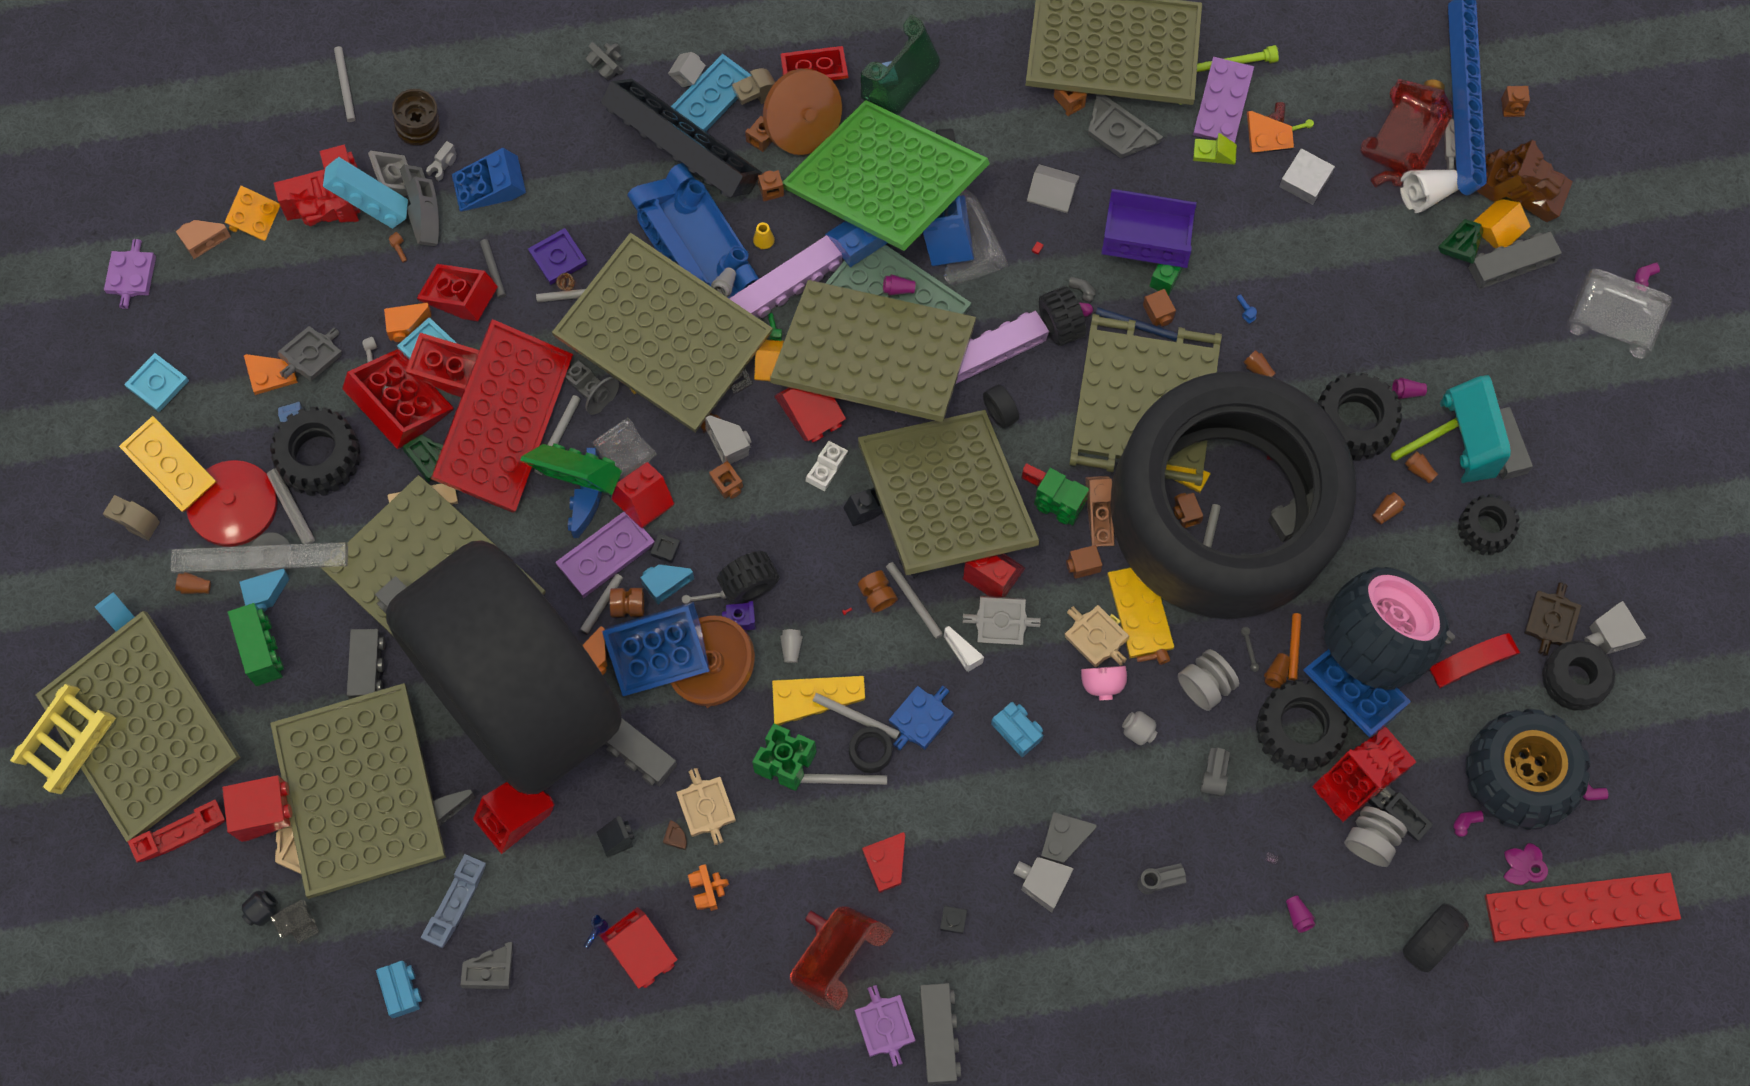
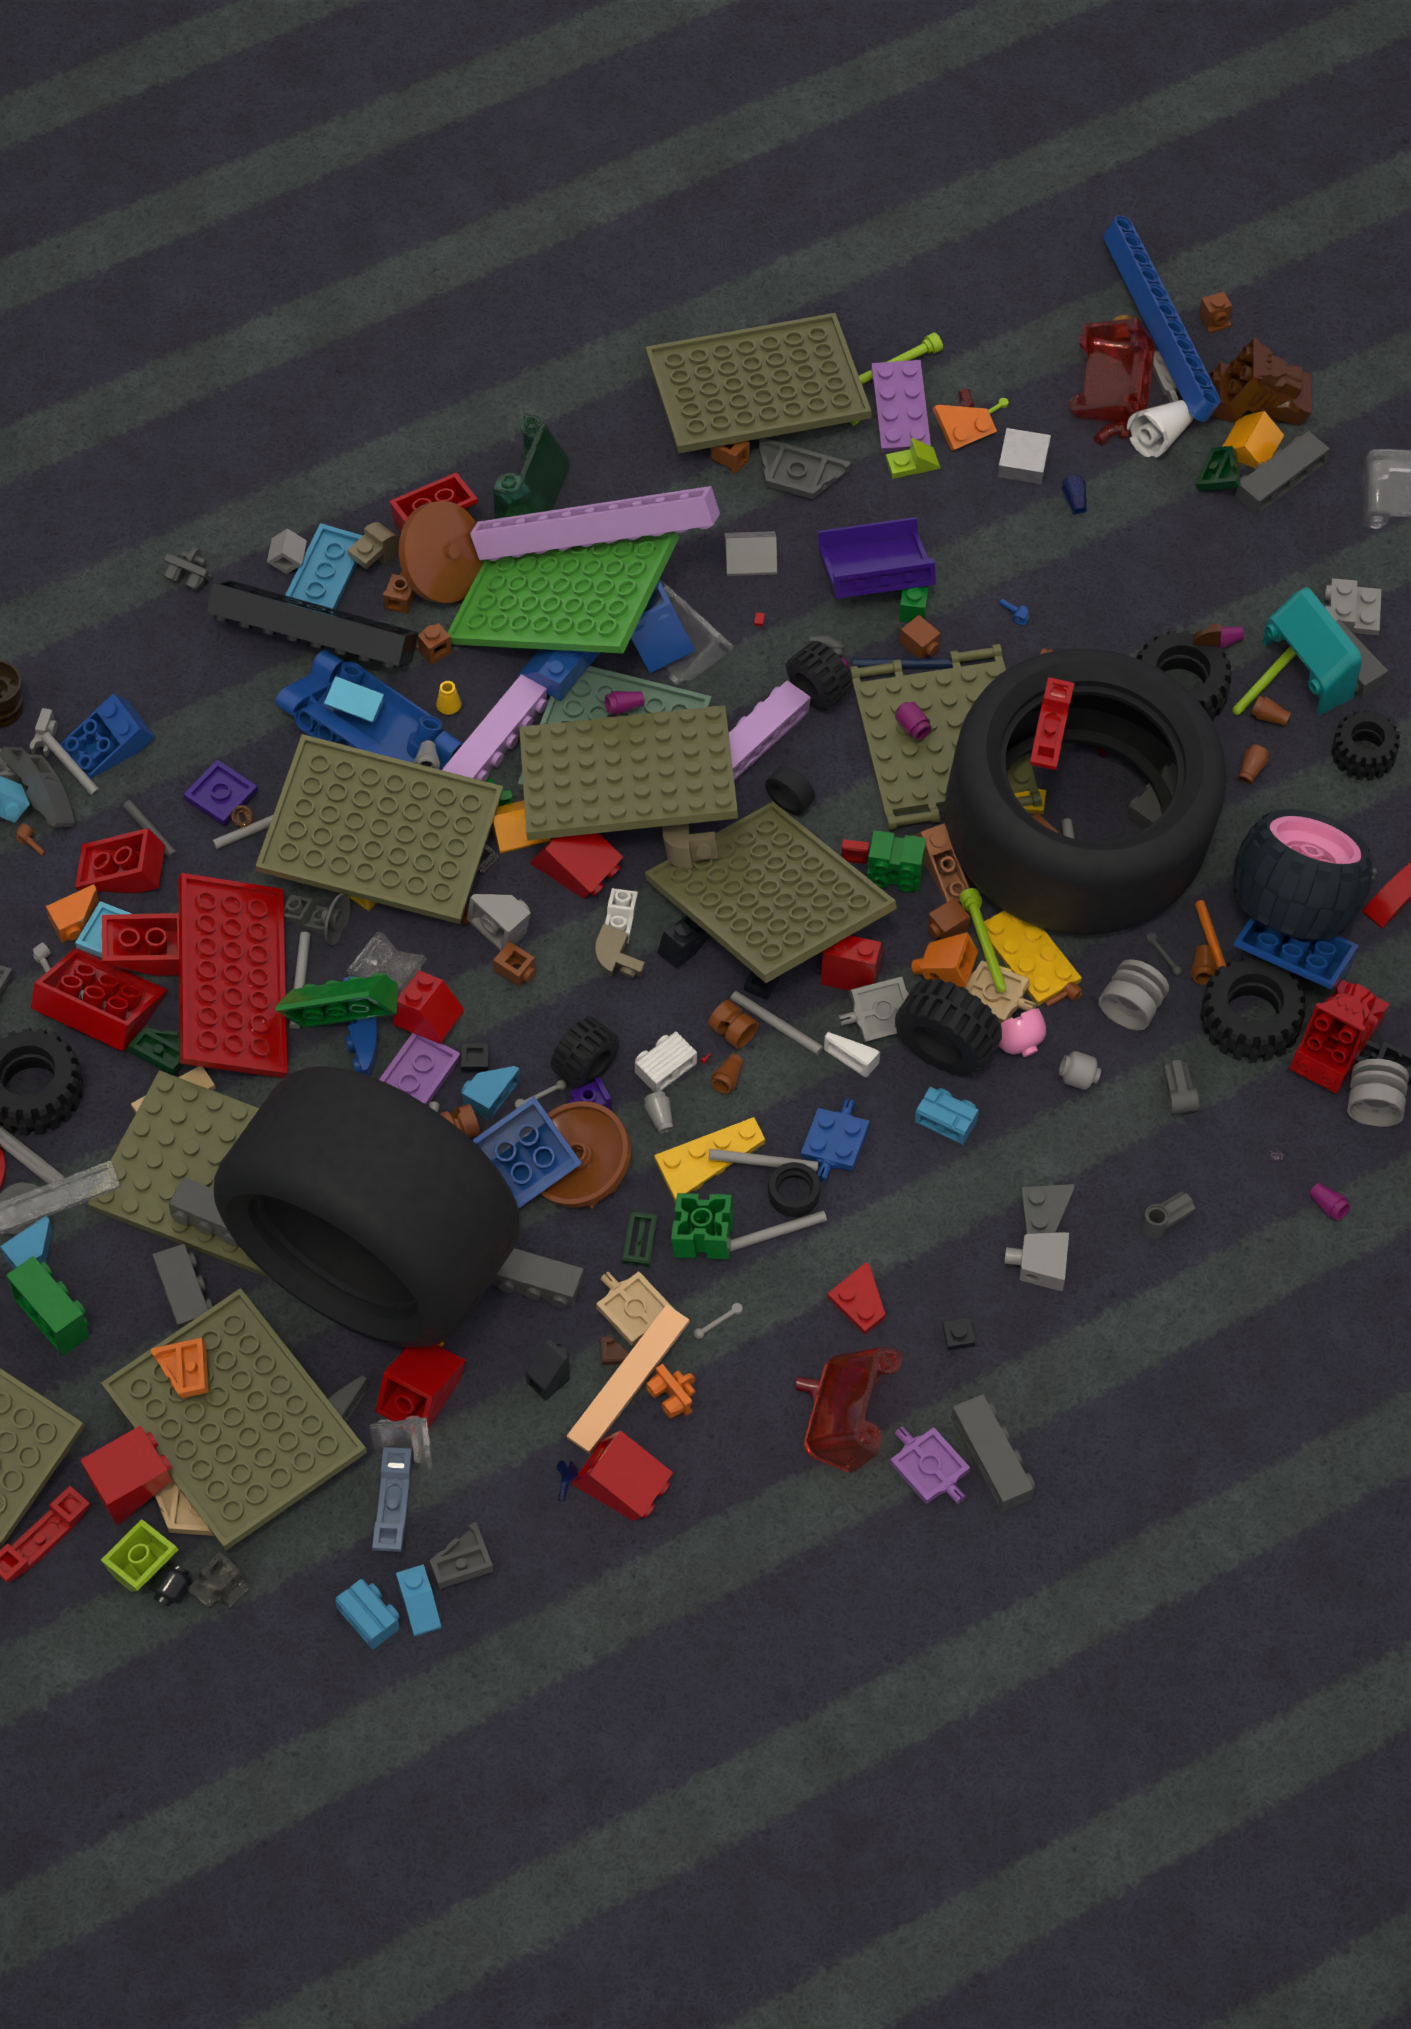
camera: 20 degrees left, 10 degrees down
(241, 879) = (138, 1556): none -> lime slope
(334, 735) = (185, 1366): none -> orange wing
(441, 992) = (418, 1600): none -> dark azure slope
(451, 193) = (69, 763): none -> light grey bar
(492, 860) = (404, 1434): none -> clear bracket
(675, 865) = (628, 1379): none -> light nougat tile
(687, 215) = (354, 699): none -> medium azure brick
(724, 764) = (636, 1259): none -> dark green tile
(786, 834) = (736, 1309): none -> light grey hinge
(803, 496) = (610, 954): none -> dark tan brick
(811, 604) = (665, 1062): none -> white brick
(856, 632) = (727, 1075): none -> dark orange cone
(897, 429) = (684, 847): none -> dark tan brick
(928, 130) = (595, 523): none -> lavender brick
(1043, 659) = (948, 1027): none -> black tyre
(1069, 598) = (948, 960): none -> orange torso
(1110, 549) = (972, 901): none -> lime piece
(1123, 379) = (913, 720): none -> magenta brick
(1215, 440) = (1051, 723): none -> red slope
(1335, 223) = (1075, 493): none -> clear blue cone
(1391, 390) = (1209, 636): none -> reddish brown tile
(1527, 397) = (1354, 606): none -> light grey plate

